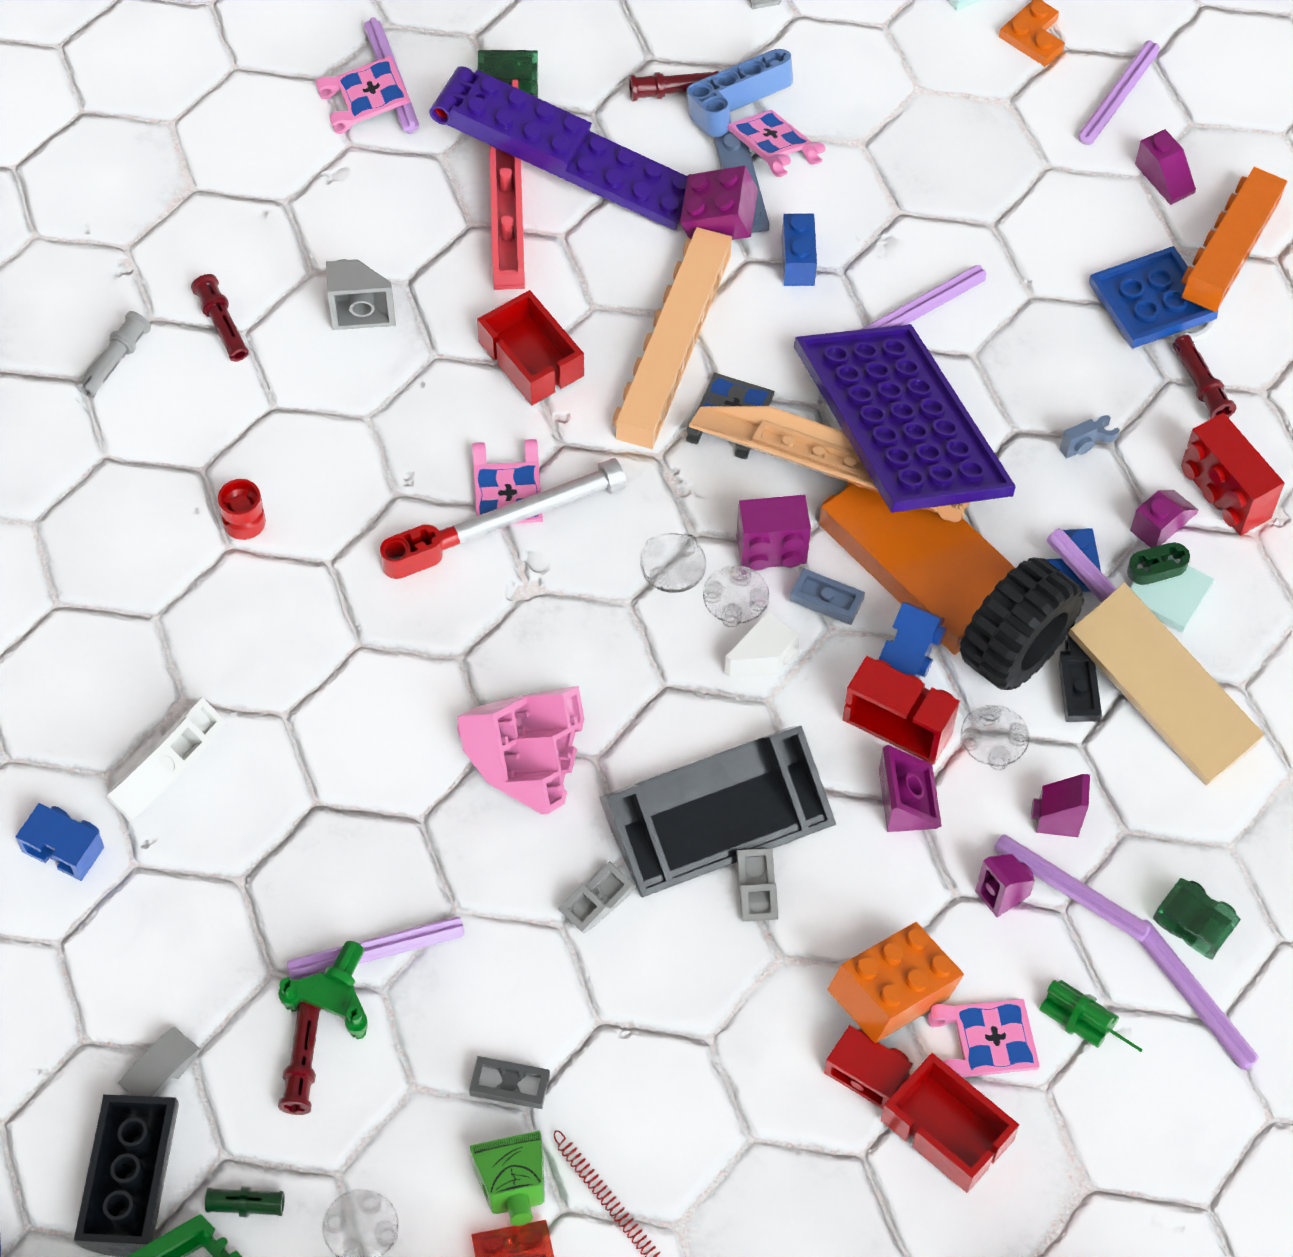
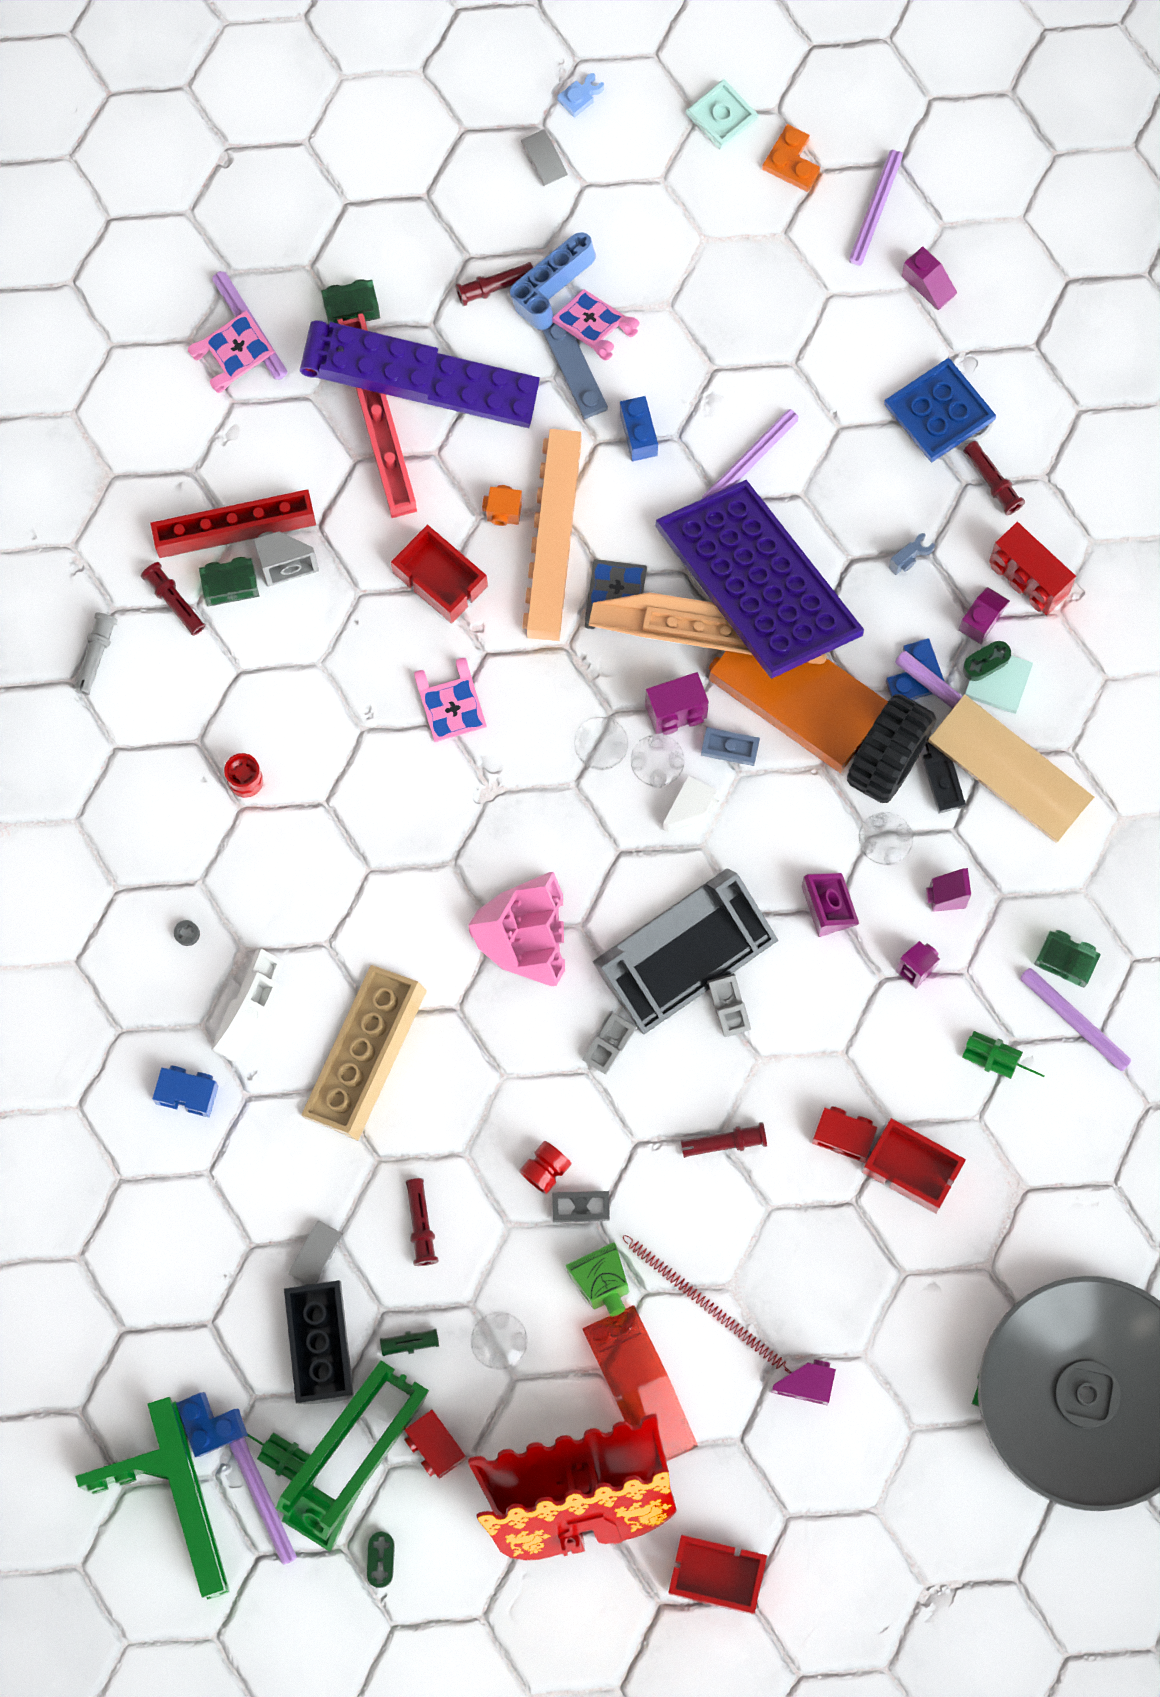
camera: 10 degrees left, 15 degrees up
(122, 658) = (184, 925): none -> dark grey bush
(288, 312) = (229, 581): none -> clear green brick
(292, 845) = (364, 1052): none -> tan arch
(305, 252) = (232, 523): none -> red brick
(331, 990) = (430, 1166): green axle -> none
(380, 946) = (451, 1122): lavender axle -> none
(429, 542) = (531, 679): piece -> none
(475, 1024) = (545, 1167): none -> red wheel
(624, 296) = (503, 505): none -> orange brick
(720, 202) = (563, 401): magenta brick -> none
(731, 1043) = (739, 1139): none -> dark red pin
(895, 982) = (852, 1065): orange brick -> none
(900, 709) = (810, 837): red piece -> none
(914, 640) = (805, 786): blue brick -> none
(991, 1037) = (930, 1087): bright pink flag -> none
(1075, 889) = (969, 955): lavender axle -> none
(1233, 240) = (998, 341): orange brick -> none

